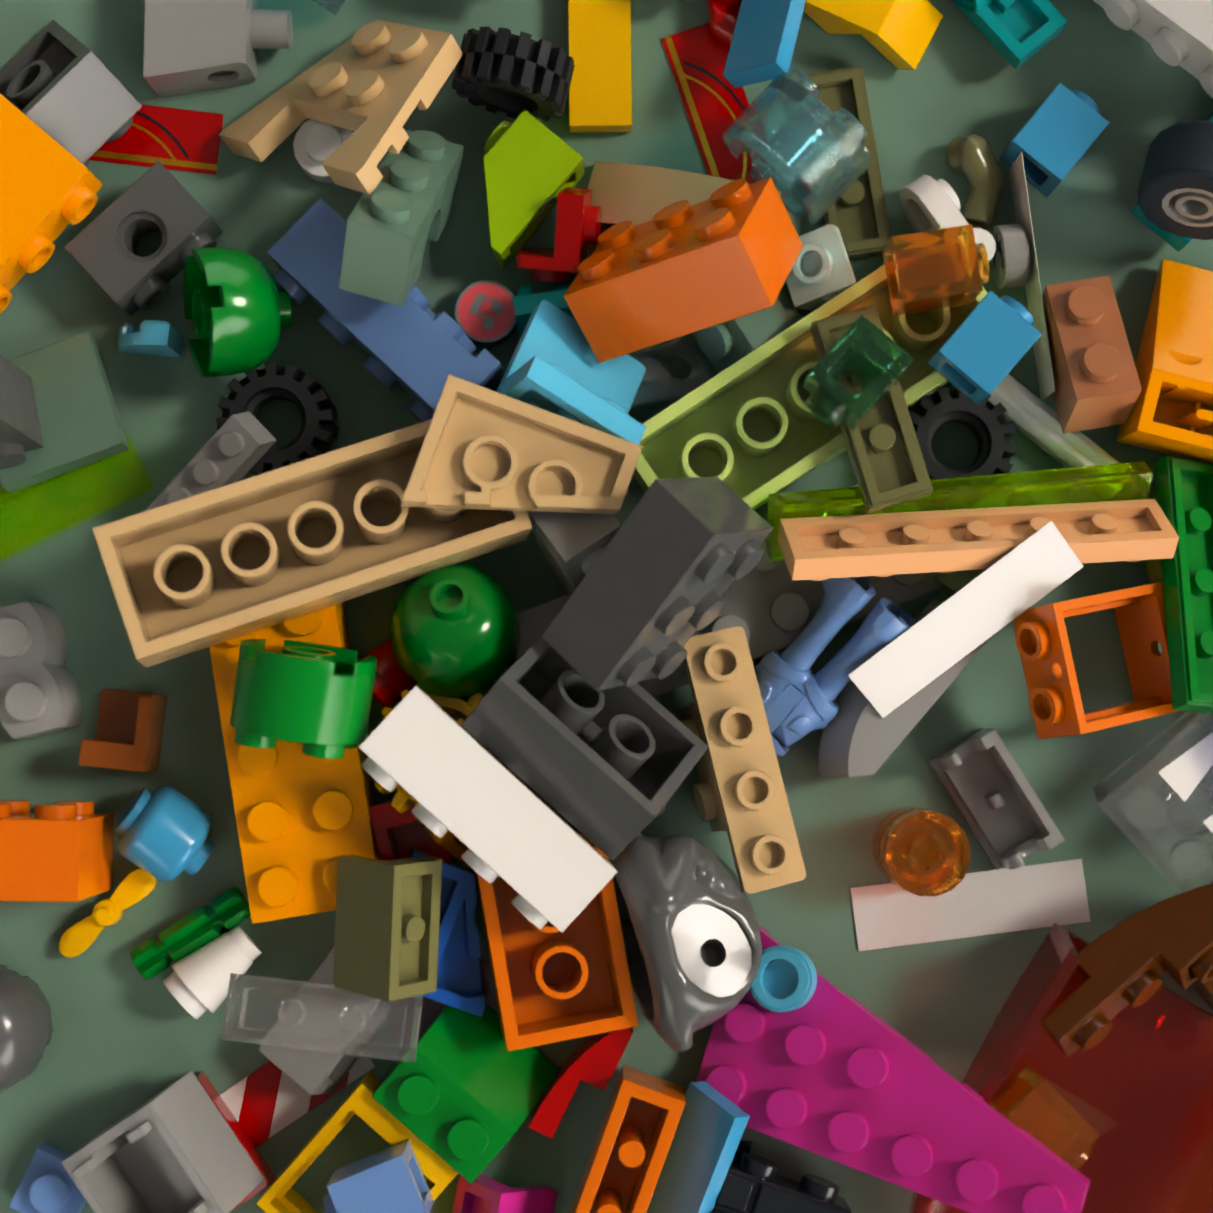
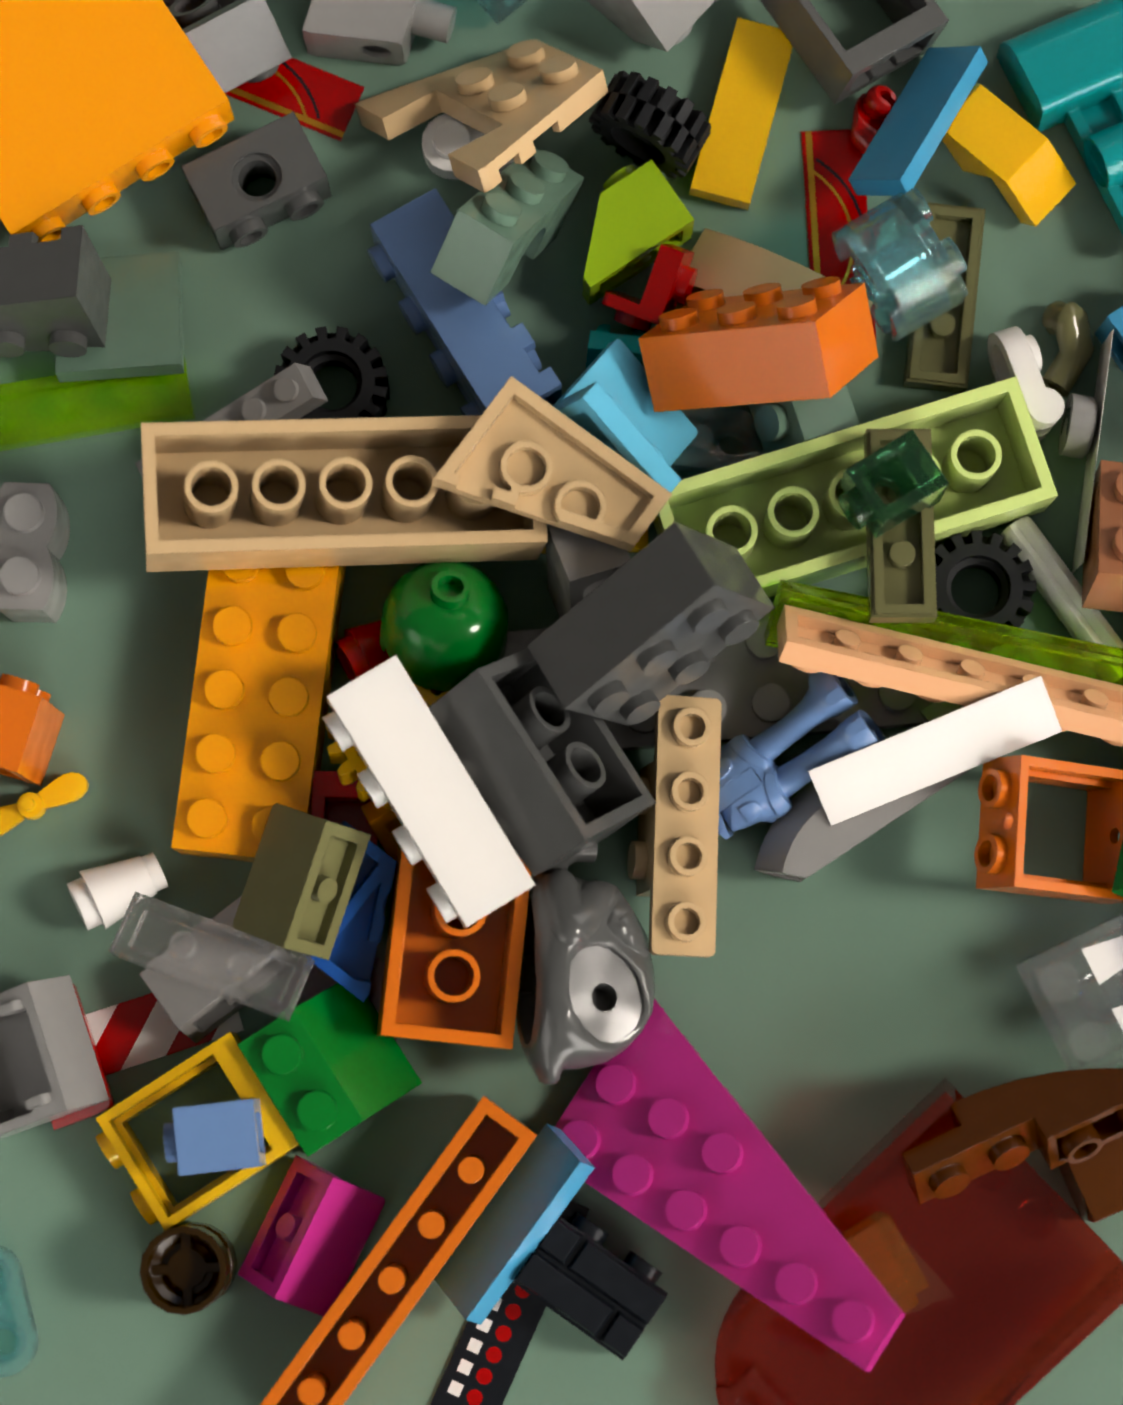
camera: 15 degrees right, 5 degrees down
(126, 732) = (102, 638): dark orange panel -> none
(151, 338) = (238, 276): medium azure tile -> none
(165, 833) = (110, 744): dark azure head -> none
(190, 933) = (105, 847): green axle -> none
(232, 310) = (322, 269): green cylinder -> none
(302, 696) = (287, 635): green brick -> none
(486, 313) = (561, 340): coral tile -> none
(590, 1062) = (457, 1080): red slope -> none
(784, 979) = (665, 1050): medium azure tile -> none
(820, 269) = (888, 383): light aqua bracket -> none
(921, 851) = (833, 965): clear orange wheel -> none
(934, 269) = (996, 412): clear orange brick -> none
(977, 906) = (868, 1039): white sticker -> none
(986, 346) = (1024, 496): dark azure brick -> none
(995, 799) = (919, 939): light grey hinge -> none

